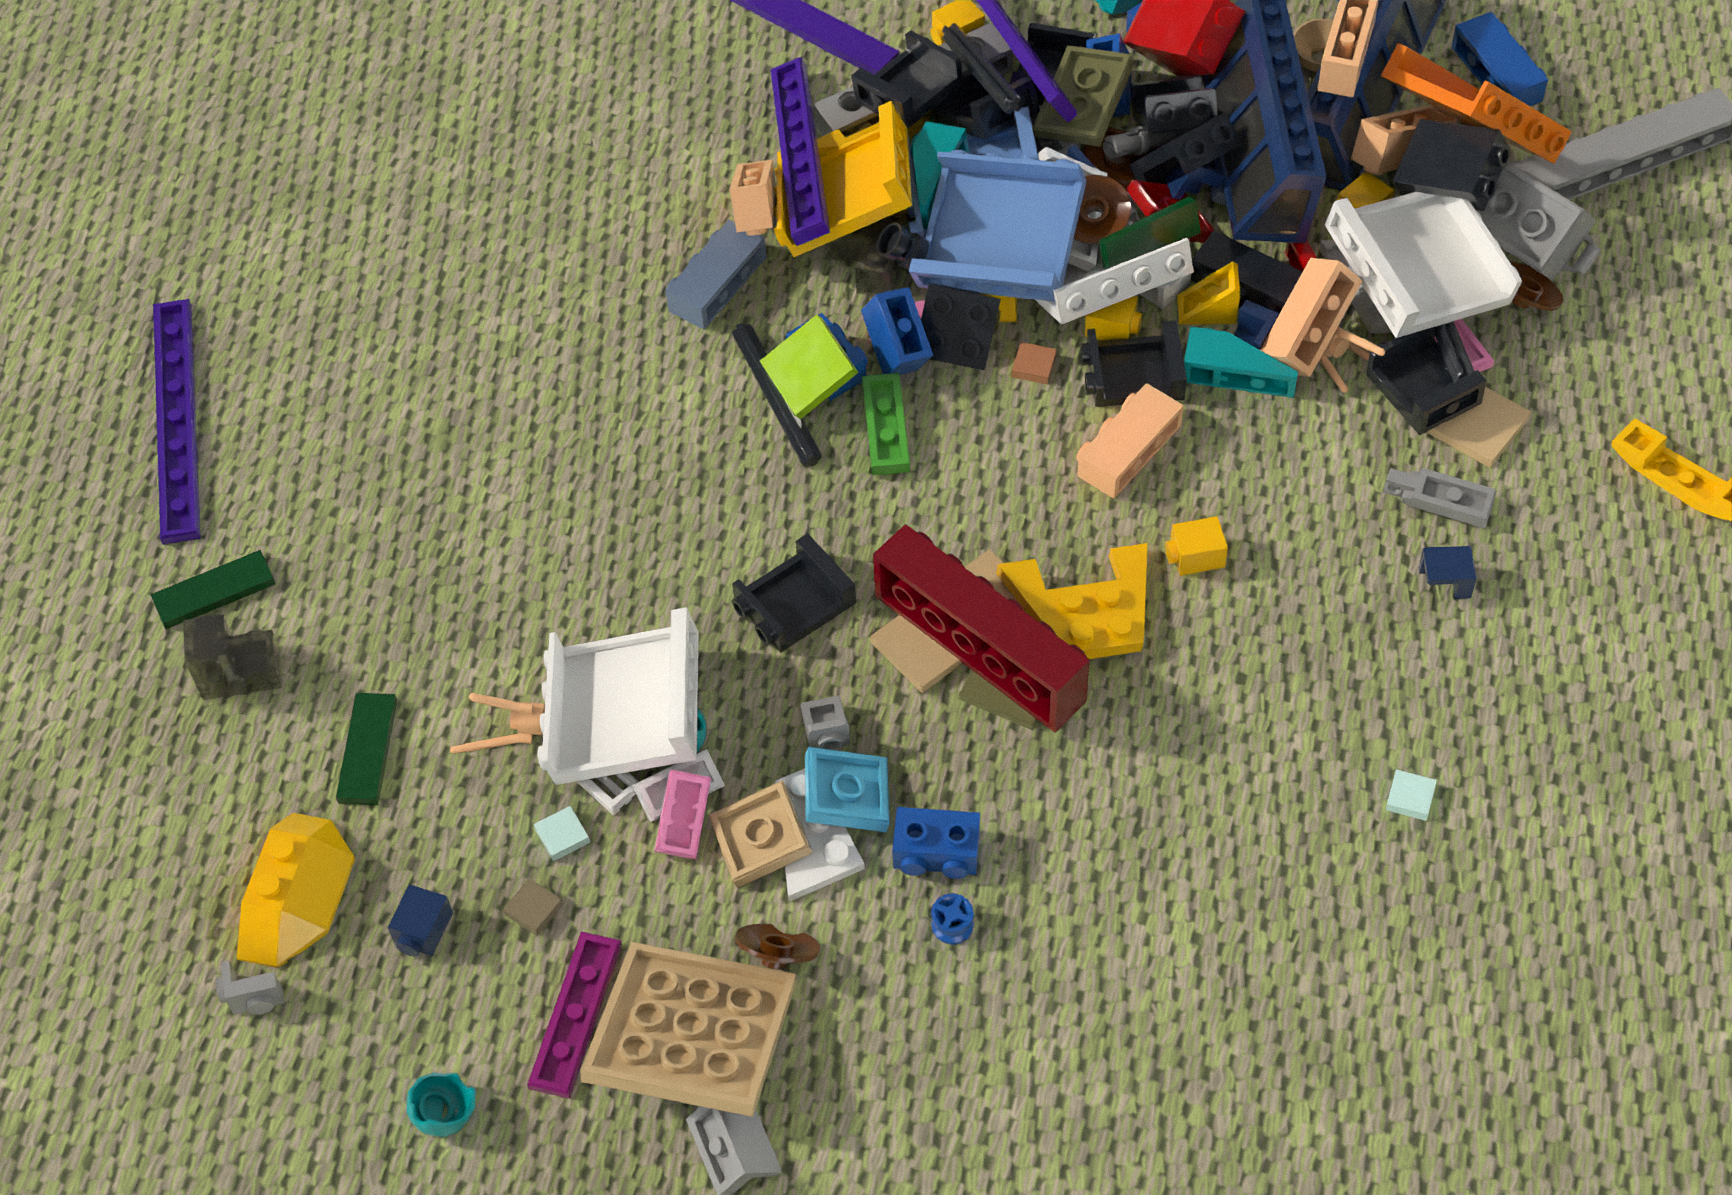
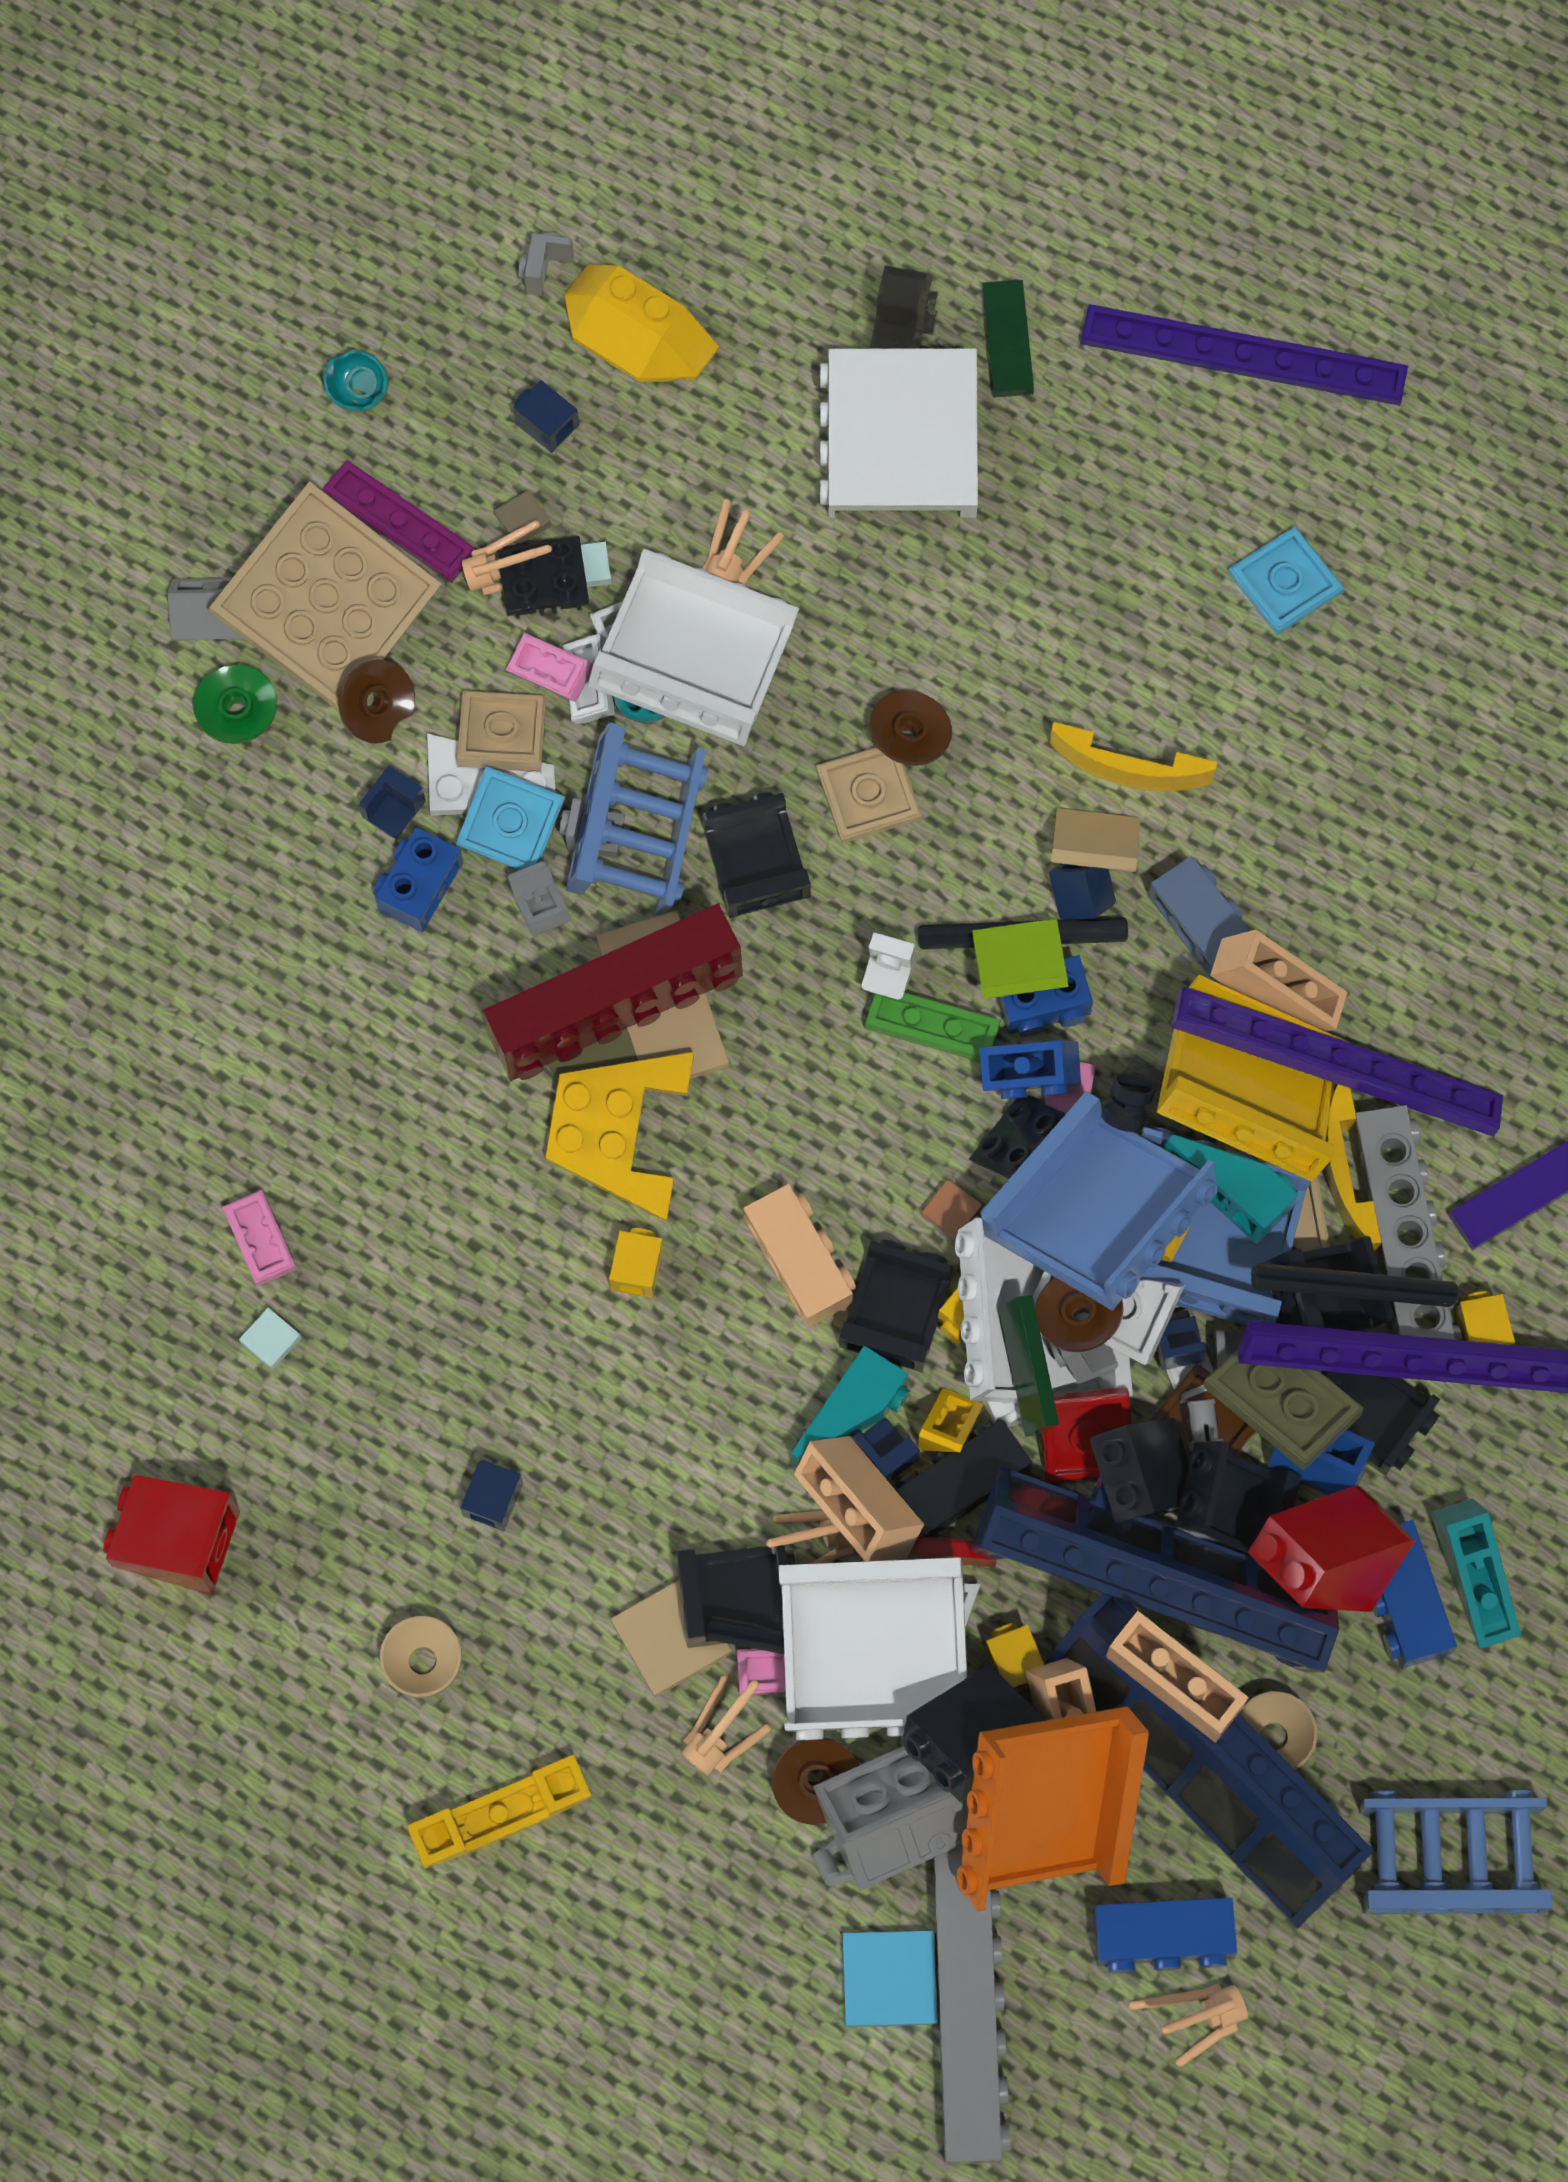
camera: 110 degrees right, 15 degrees up
(343, 623) = (900, 430): none -> white panel
(366, 749) = (759, 426): dark green tile -> none
(383, 325) = (1286, 580): none -> medium azure tile
(591, 858) = (547, 580): none -> black hinge
(595, 398) = (1186, 773): none -> yellow slope
(602, 908) = (483, 569): none -> light nougat plant
(627, 523) = (912, 713): none -> reddish brown dish
(676, 361) = (1096, 840): none -> tan tile
(696, 542) = (867, 794): none -> tan tile
(719, 364) = (1081, 891): none -> dark blue panel
(791, 712) = (597, 830): none -> medium blue fence
(831, 1052) = (235, 686): none -> green dish
(852, 457) = (889, 966): none -> white slope
(868, 898) = (392, 802): none -> dark blue panel
(912, 81) = (1380, 1209): black panel -> none
(912, 739) = (538, 898): none -> light grey bracket
(952, 909) = (335, 855): blue wheel -> none
(1329, 837) = (259, 1238): none -> bright pink plate
(1442, 495) = (589, 1545): light grey hinge -> none
(1529, 20) = (1221, 2009): none -> light nougat plant
(1549, 362) = (707, 1749): none -> light nougat plant
(1611, 555) = (416, 1634): none -> tan piece
(1626, 780) = (172, 1532): none -> red slope
(1635, 205) = (889, 1979): none -> medium azure tile

